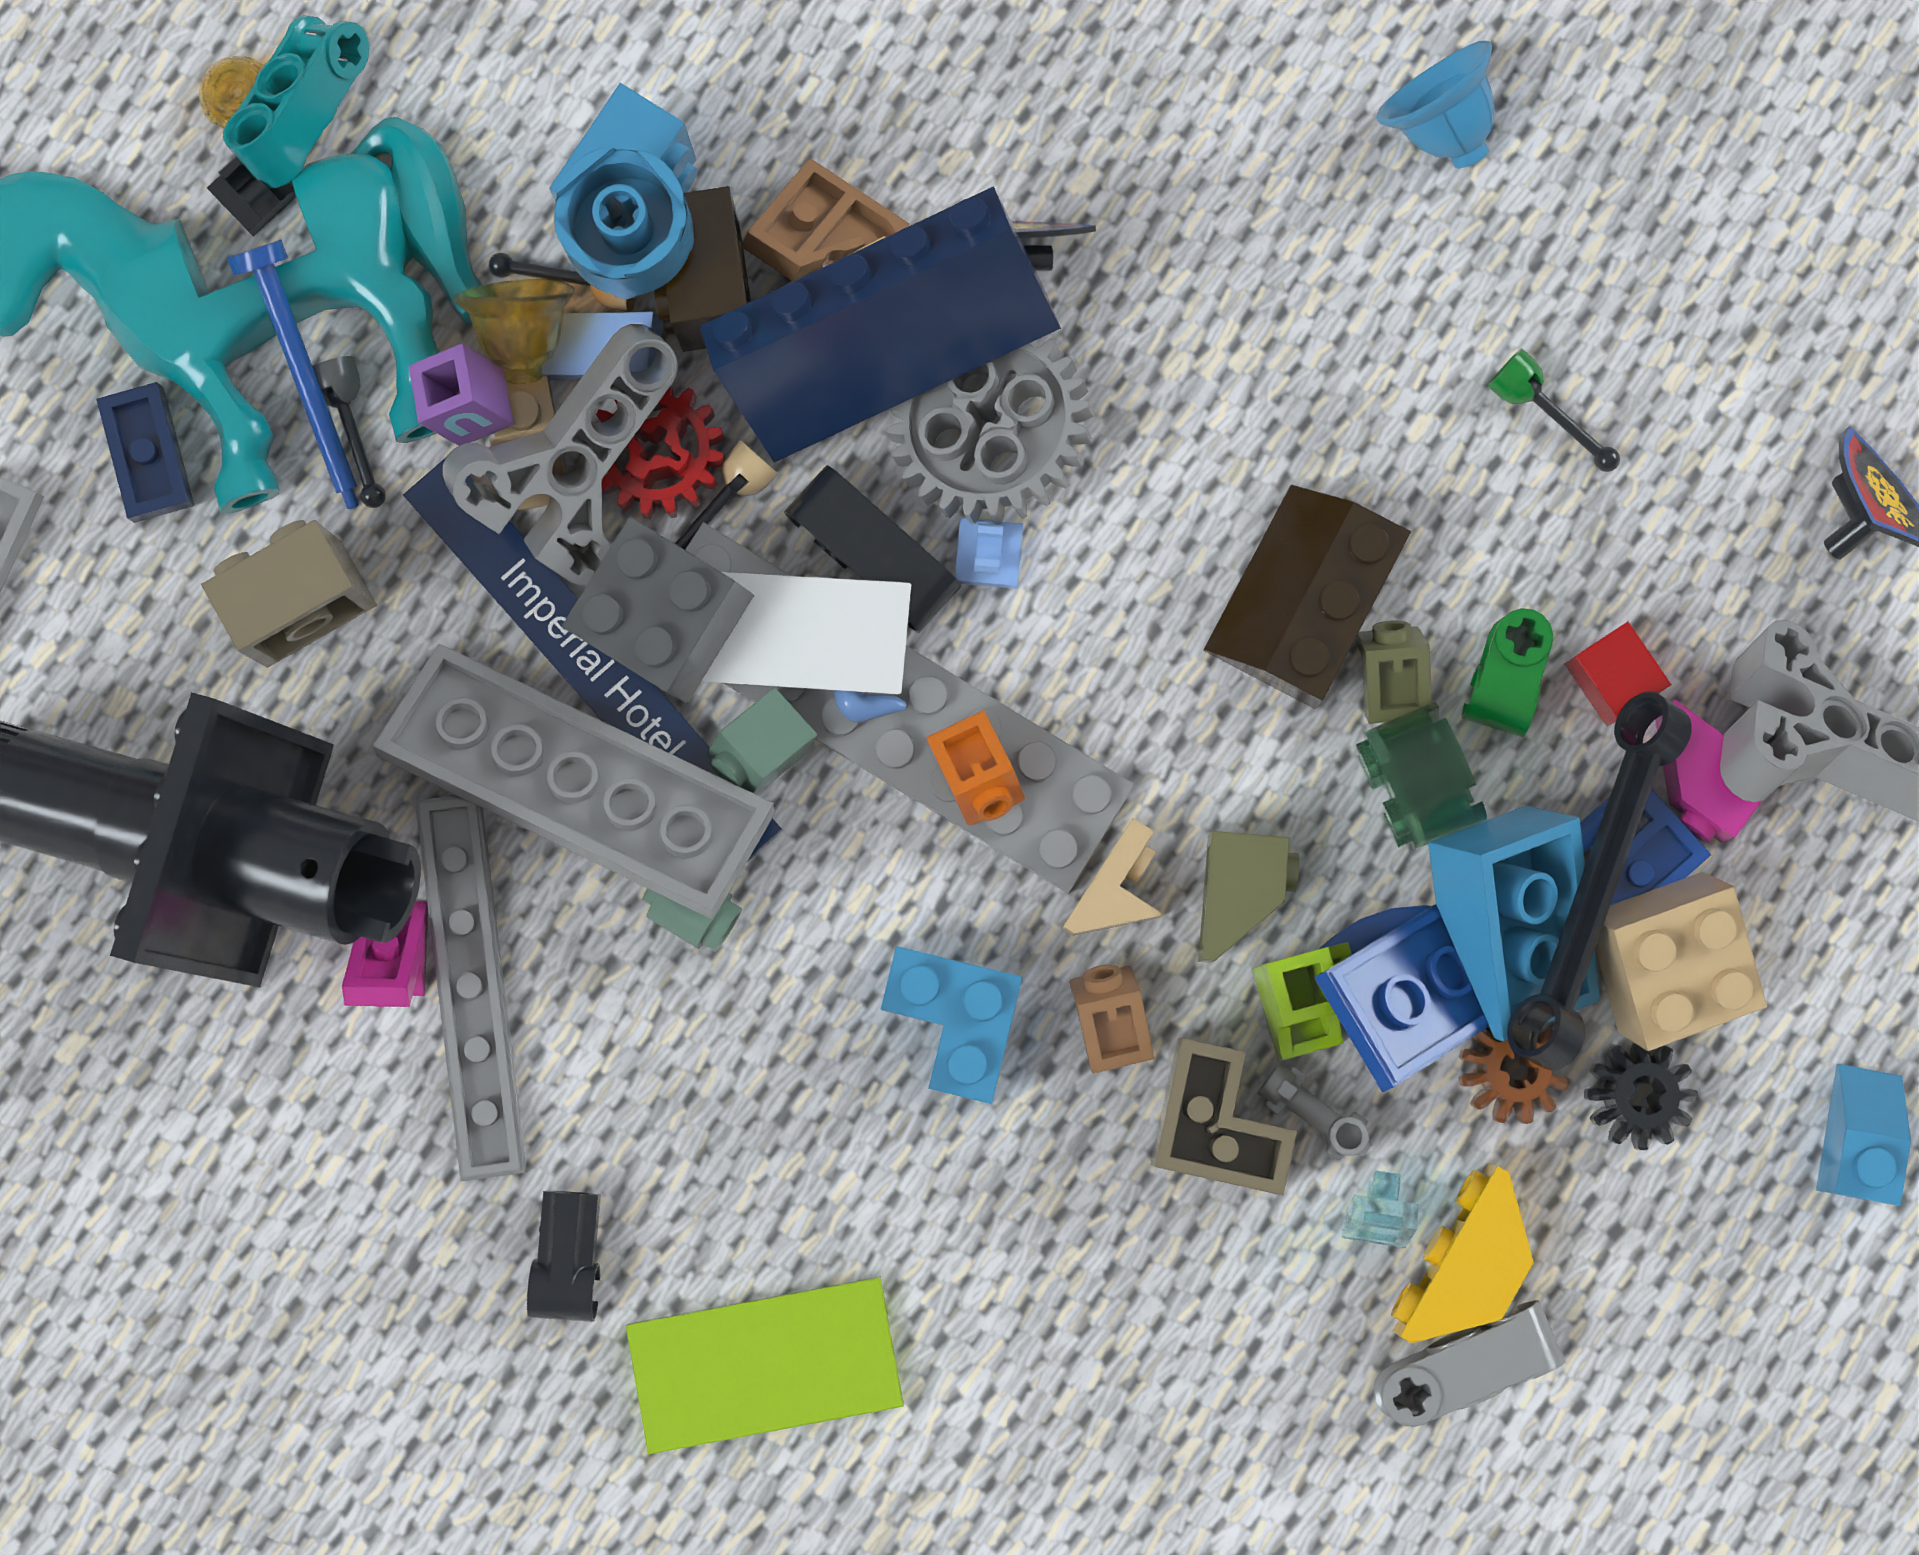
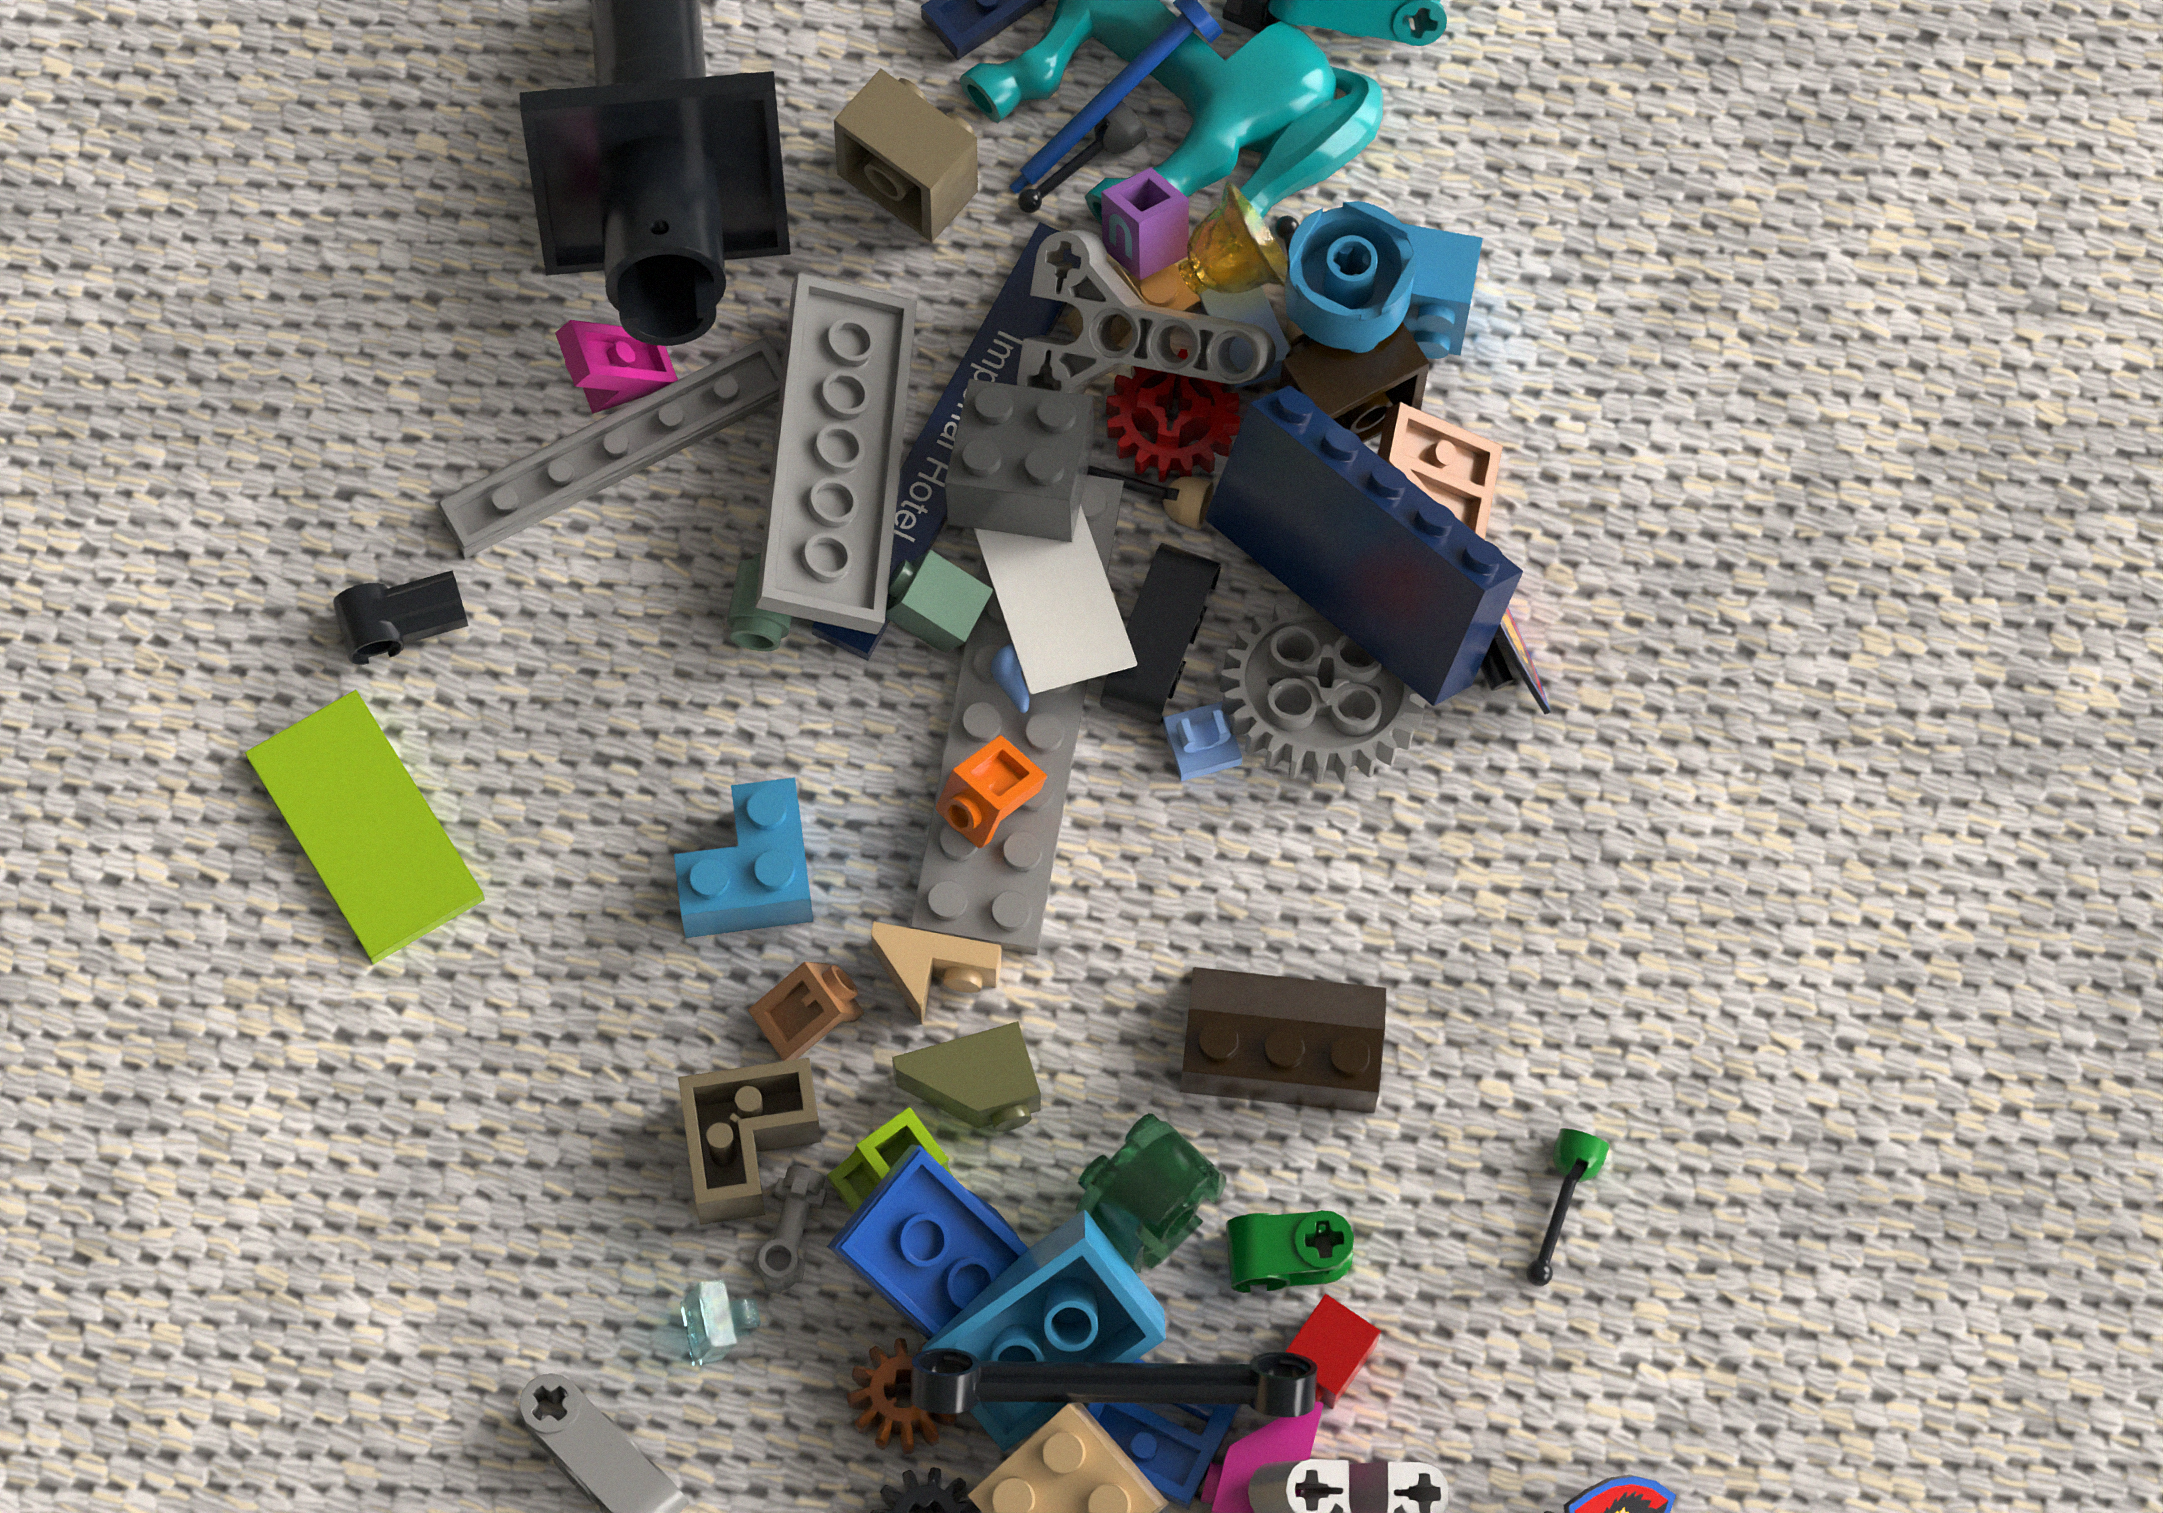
camera: 60 degrees right, 15 degrees down
(1394, 670) = (1247, 1141): olive bracket -> none
(1447, 107) = (1806, 989): dark azure hat -> none
(1472, 1265) = (700, 1425): yellow slope -> none

